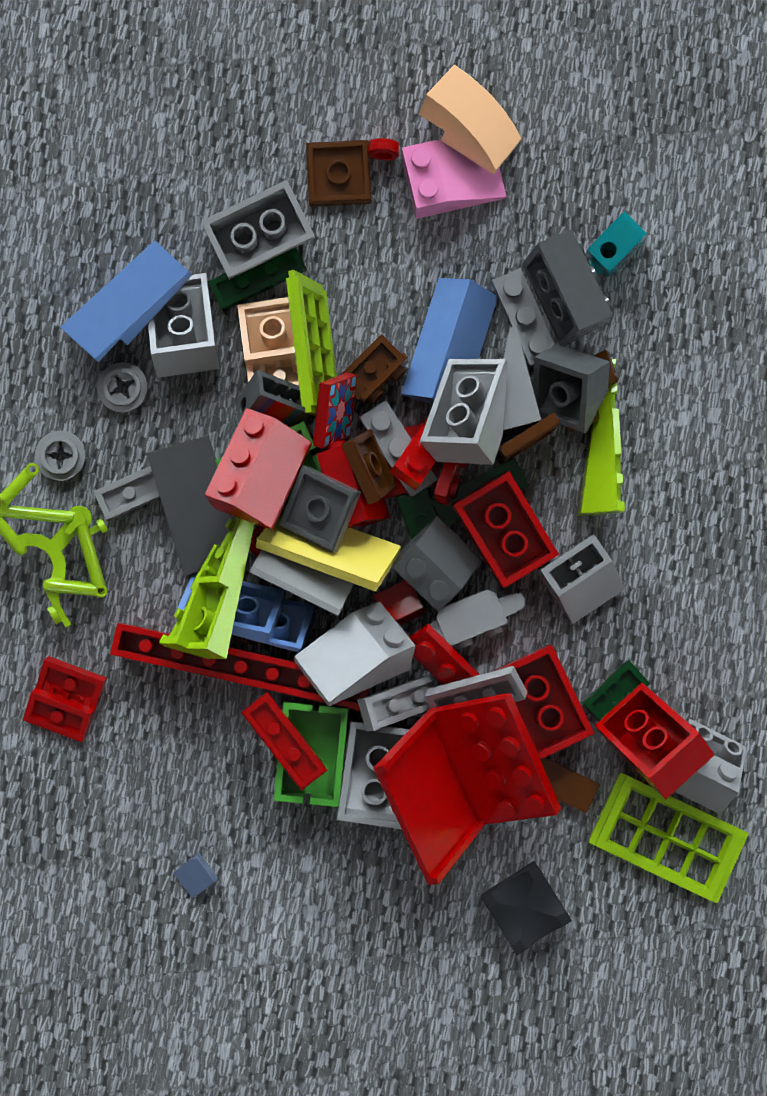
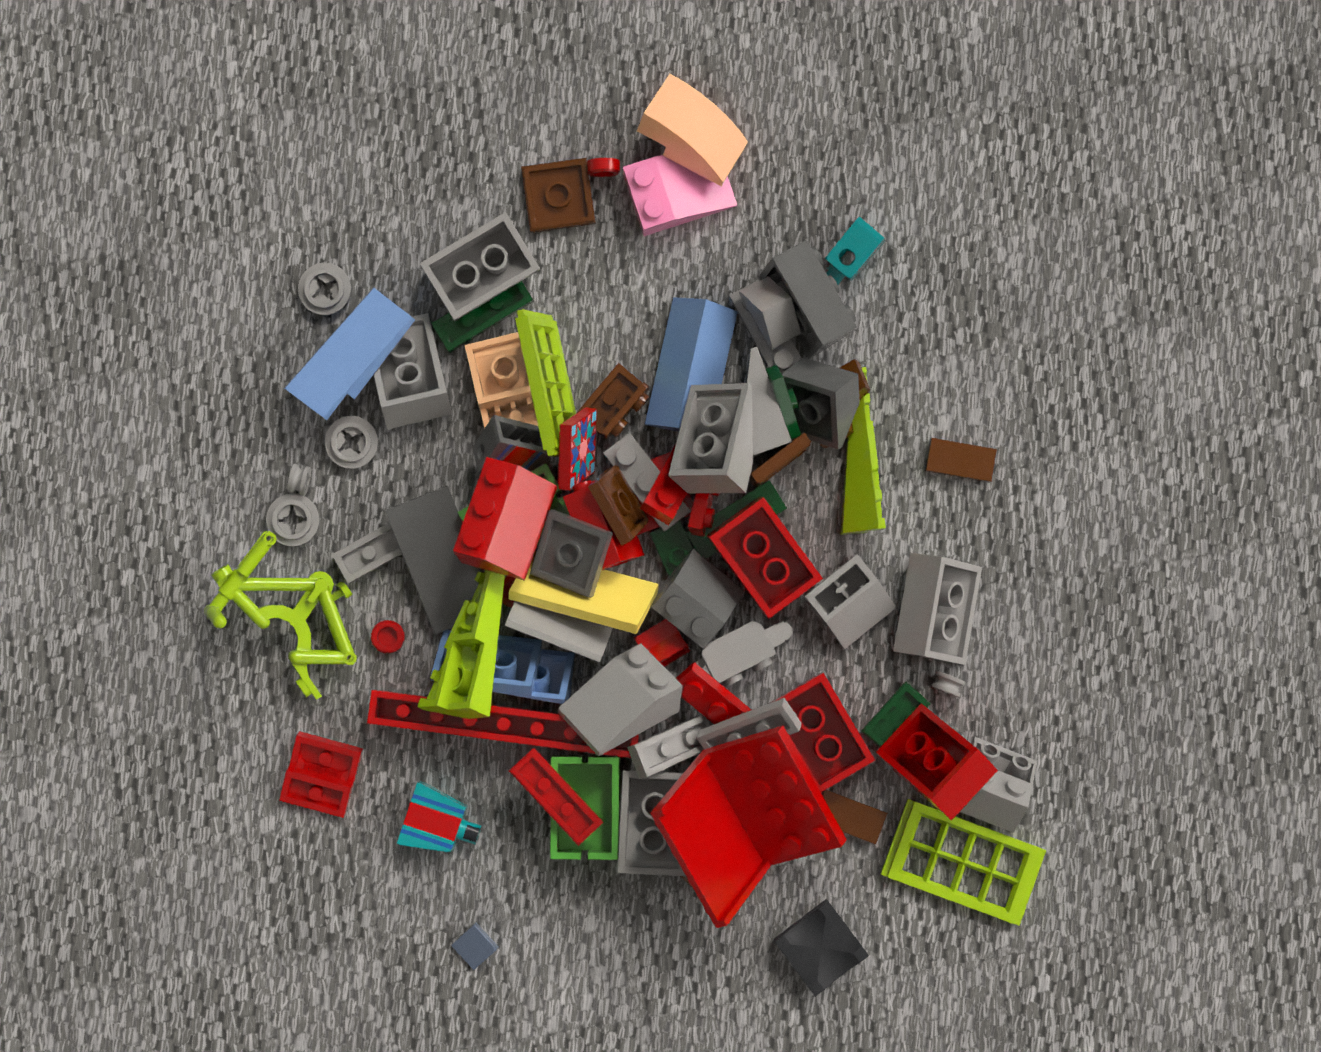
camera: 10 degrees left, 0 degrees up
(69, 418) = (299, 479): none -> light grey bush
(116, 228) = (328, 274): none -> light grey gear
(140, 574) = (388, 636): none -> red tile
(169, 753) = (436, 821): none -> torso
(532, 297) = (771, 311): none -> light grey slope
(538, 378) = (785, 399): none -> dark green plate
(664, 593) = (937, 608): none -> light grey slope
(669, 666) = (948, 684): none -> light grey bush
(697, 454) = (960, 460): none -> reddish brown tile

